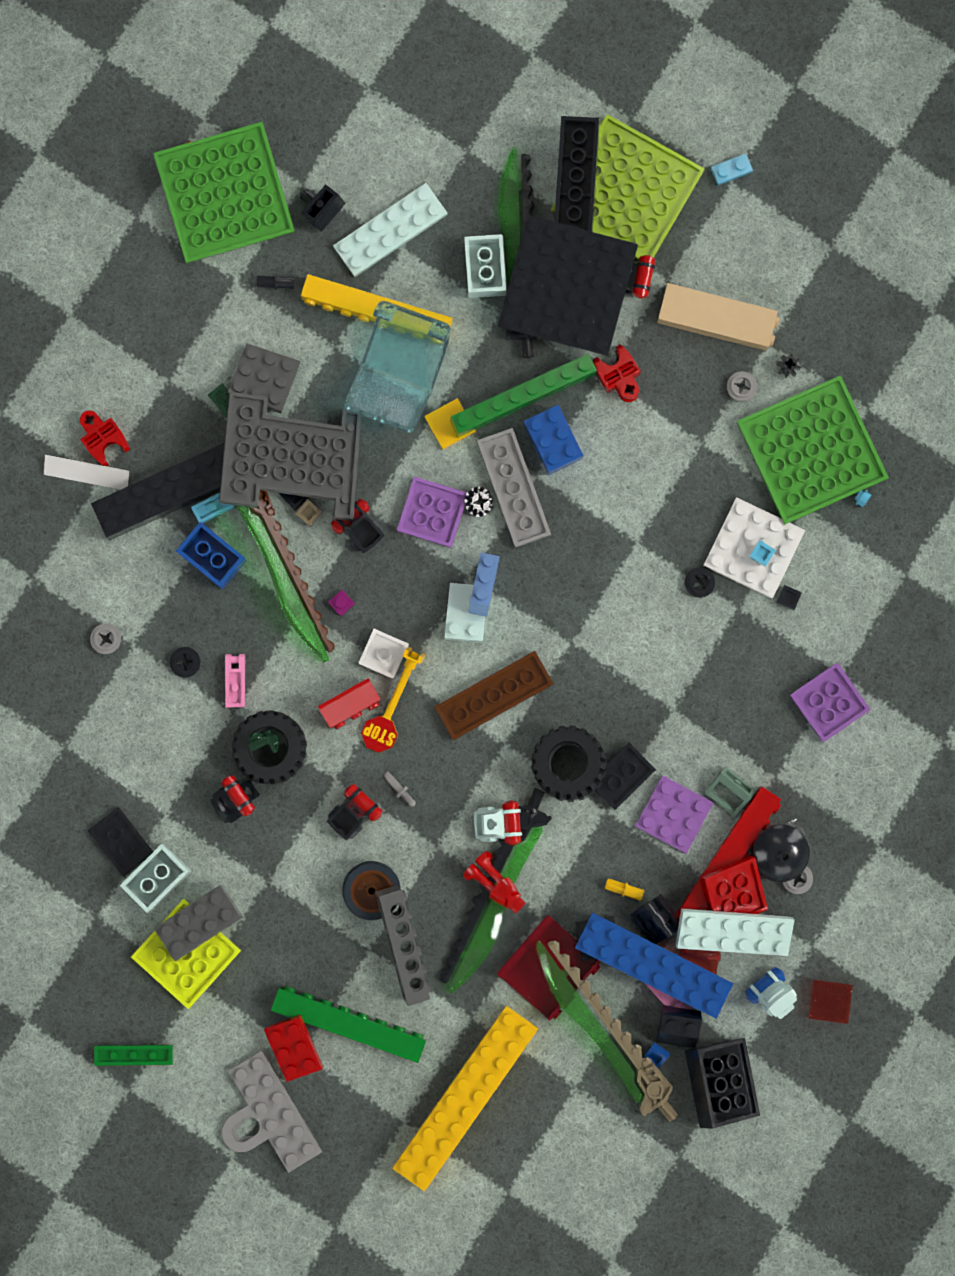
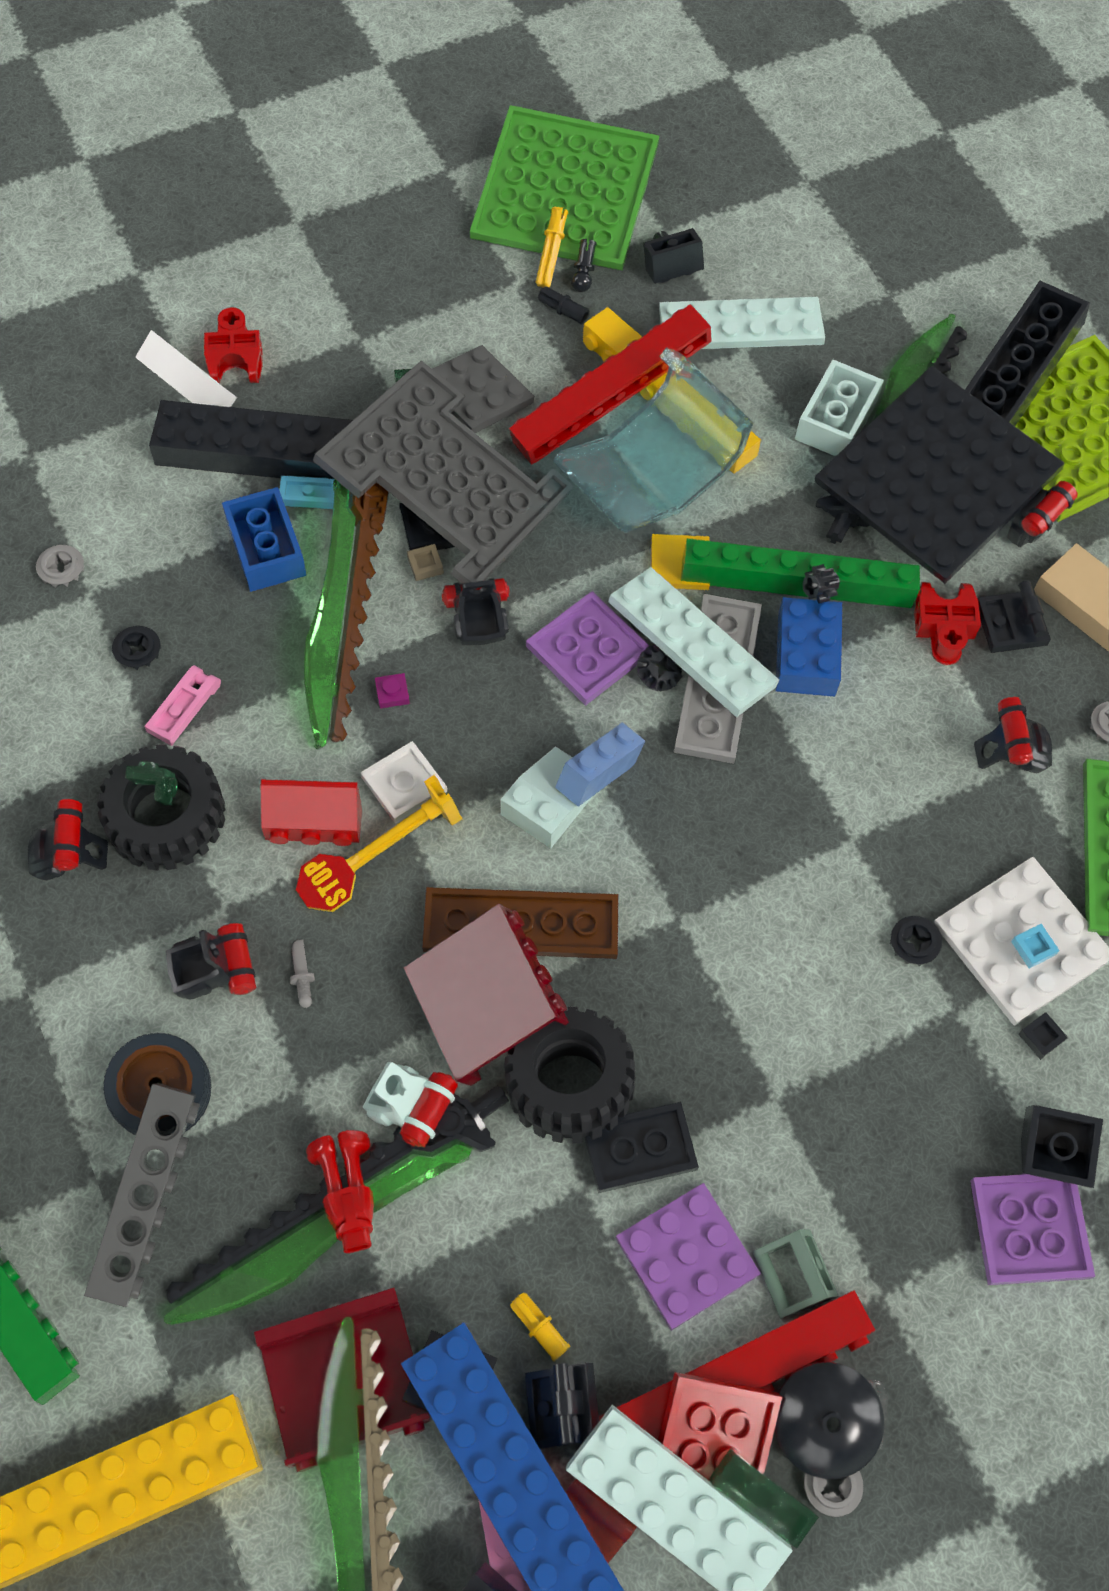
camera: 30 degrees right, 20 degrees down
(244, 244) = (554, 235): none -> yellow axle
(275, 257) = (581, 280): none -> black pin
(345, 332) = (608, 385): none -> red brick
(489, 477) = (693, 641): none -> light aqua plate
(503, 748) = (484, 991): none -> panel
(542, 403) = (821, 583): none -> black gear
(655, 352) = (1013, 620): none -> black plate
(698, 433) = (1018, 740): none -> black piece
(769, 904) = (763, 1498): none -> clear green plate
(824, 654) = (1060, 1145): none -> black slope

